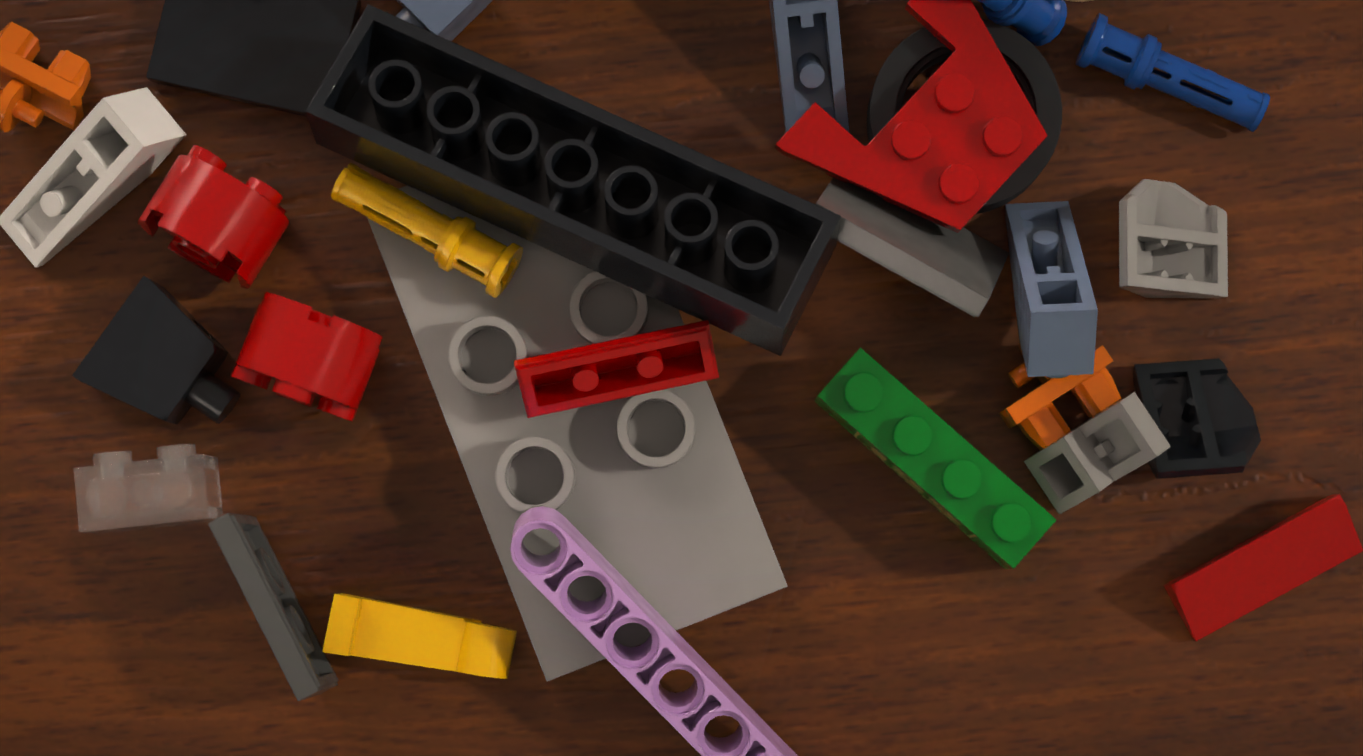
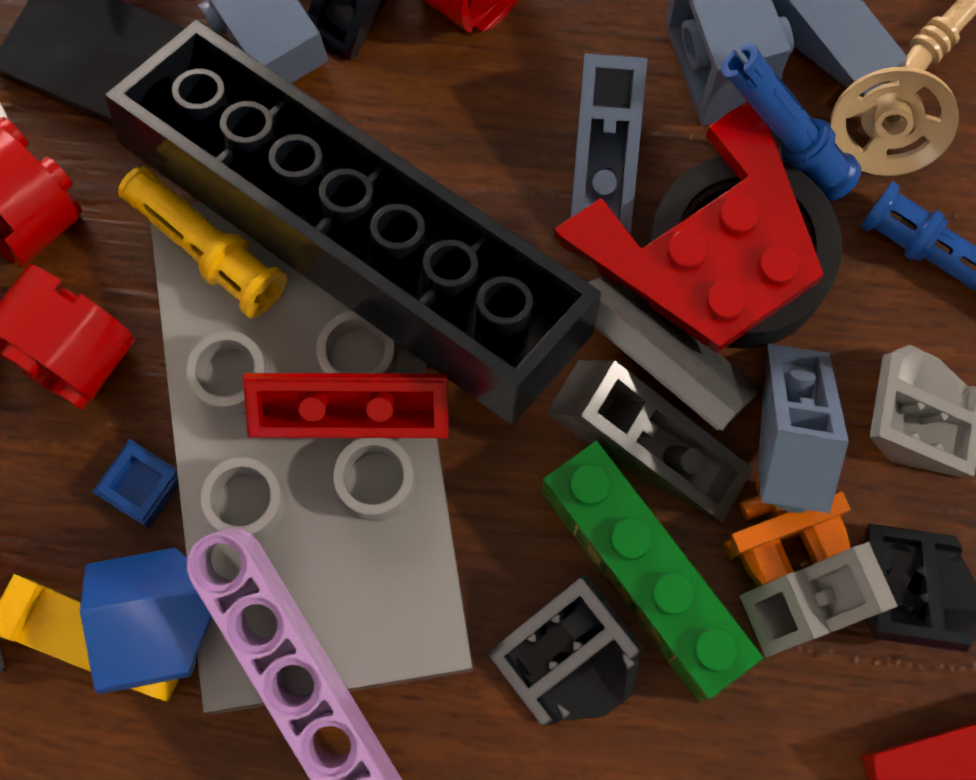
camera: 10 degrees right, 10 degrees down
(420, 477) = (138, 483): none -> blue tile
(470, 606) = (141, 620): none -> blue slope
(876, 554) = (571, 657): none -> black slope
(908, 327) = (649, 436): none -> dark grey slope

